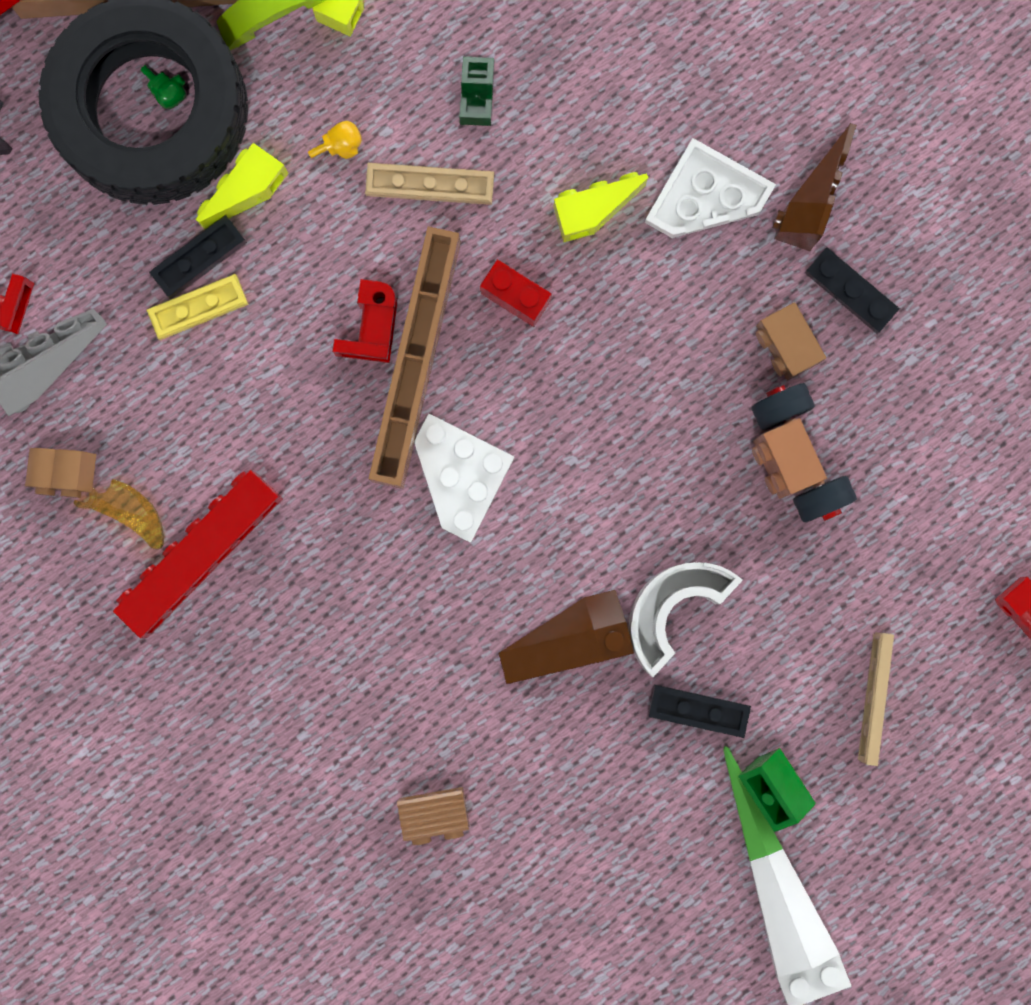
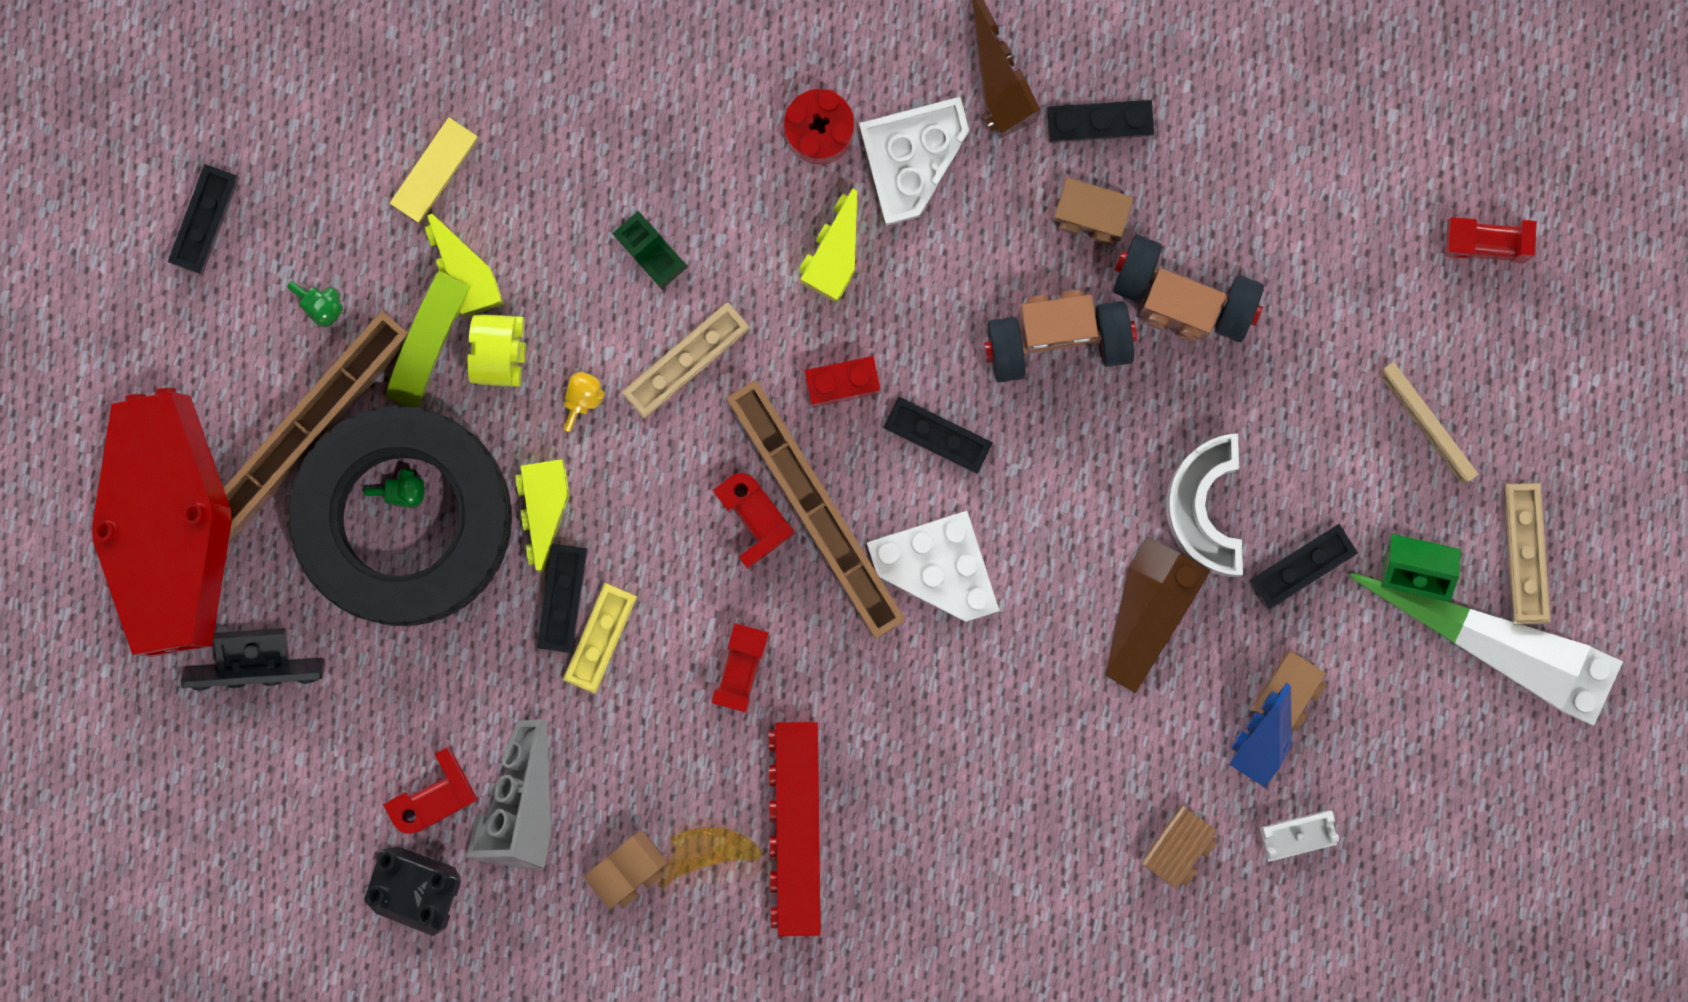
camera: 45 degrees left, 0 degrees up
(263, 416) = (744, 655): none -> red piece
(311, 53) = (496, 350): none -> neon yellow brick
(521, 885) = (1299, 835): none -> white hinge
(544, 390) = (937, 435): none -> black tile
(561, 803) = (1268, 739): none -> blue slope
(607, 785) = (1305, 685): none -> medium nougat brick
(664, 96) = (827, 108): none -> red brick
(694, 394) = (1056, 326): none -> brick
(856, 850) = (1527, 554): none -> tan tile

